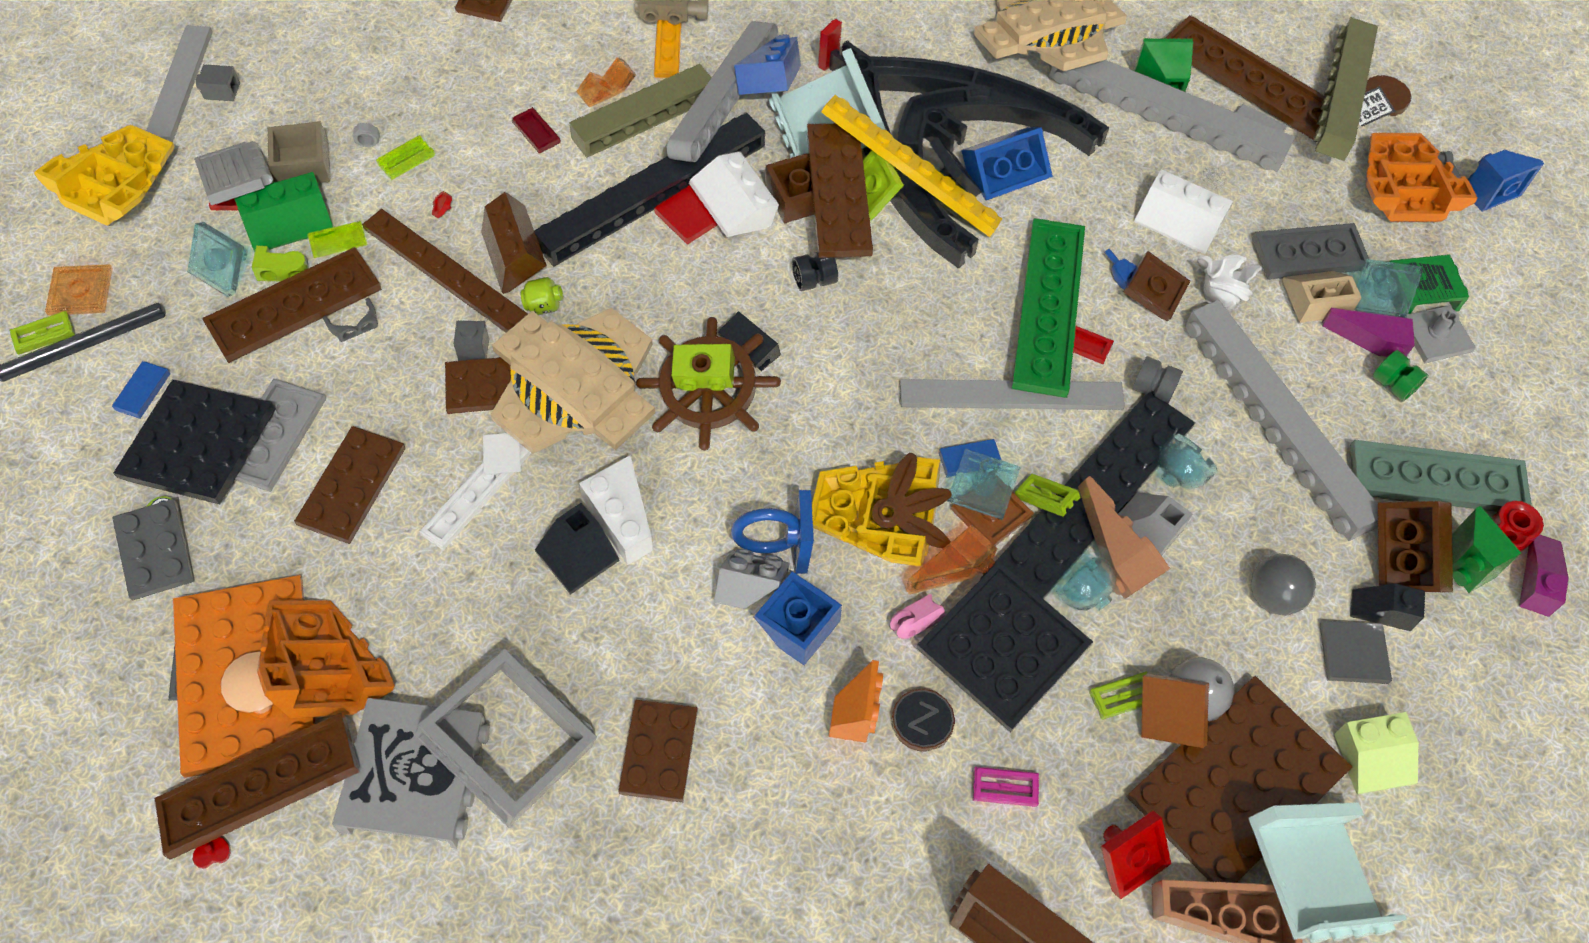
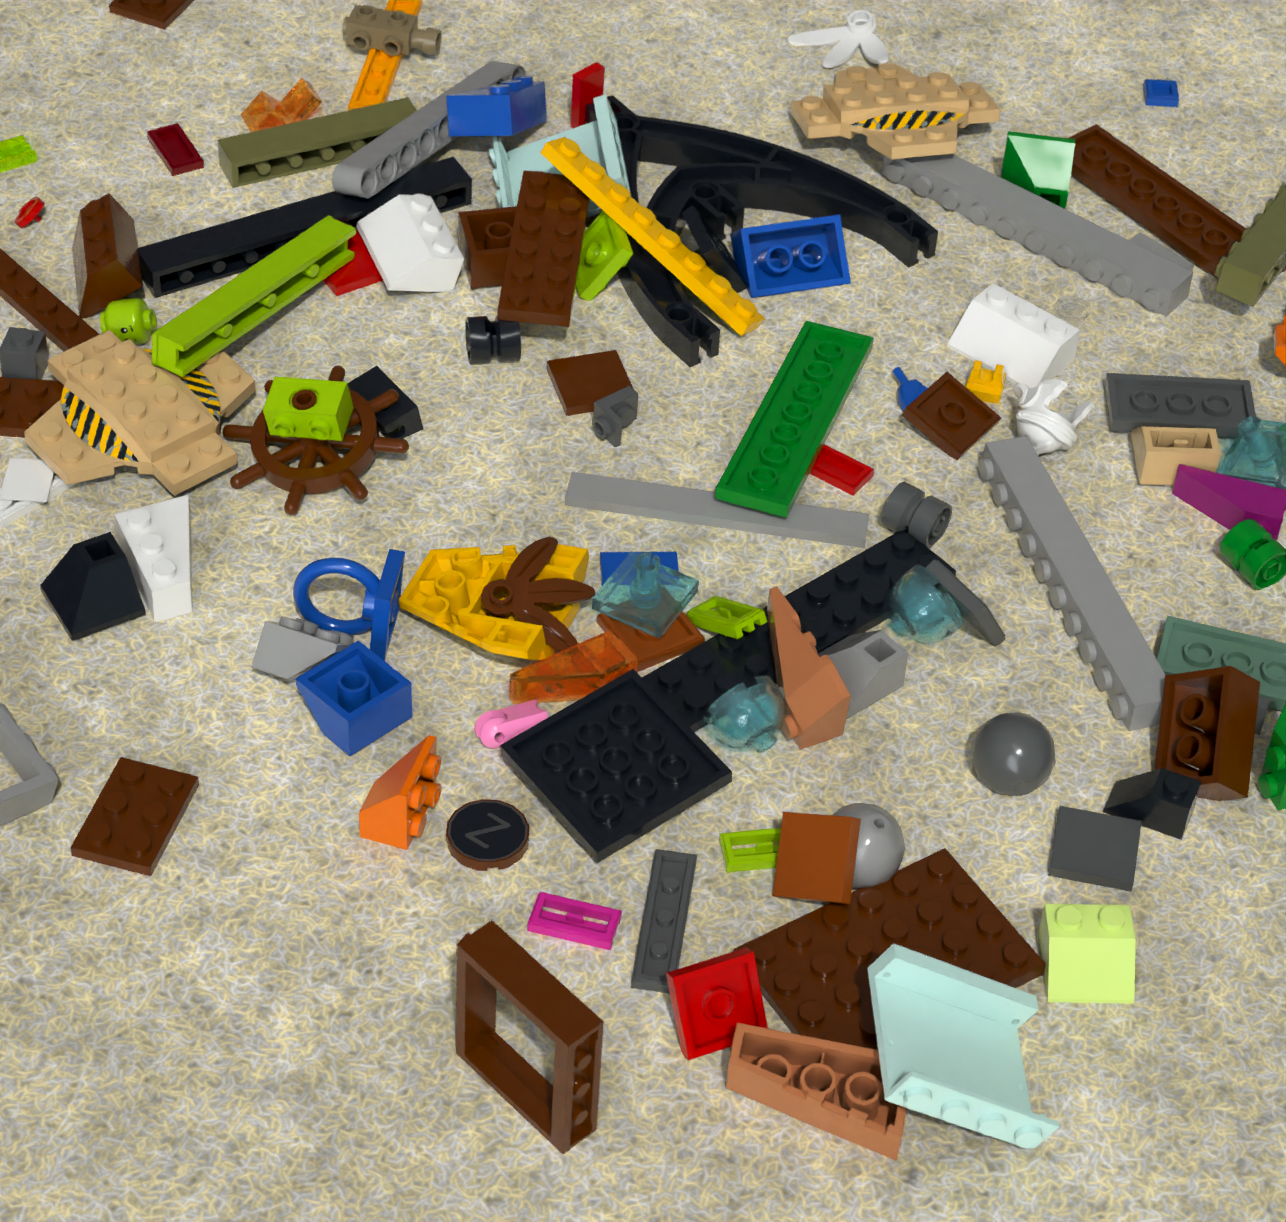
camera: 10 degrees right, 15 degrees down
(633, 267) = (252, 297): none -> lime tile
(892, 295) = (586, 379): none -> reddish brown tile
(918, 324) = (615, 413): none -> dark grey bracket
(1070, 775) = (664, 920): none -> dark grey tile
(1171, 251) = (986, 383): none -> yellow tile
(1220, 458) = (968, 604): none -> dark grey tile

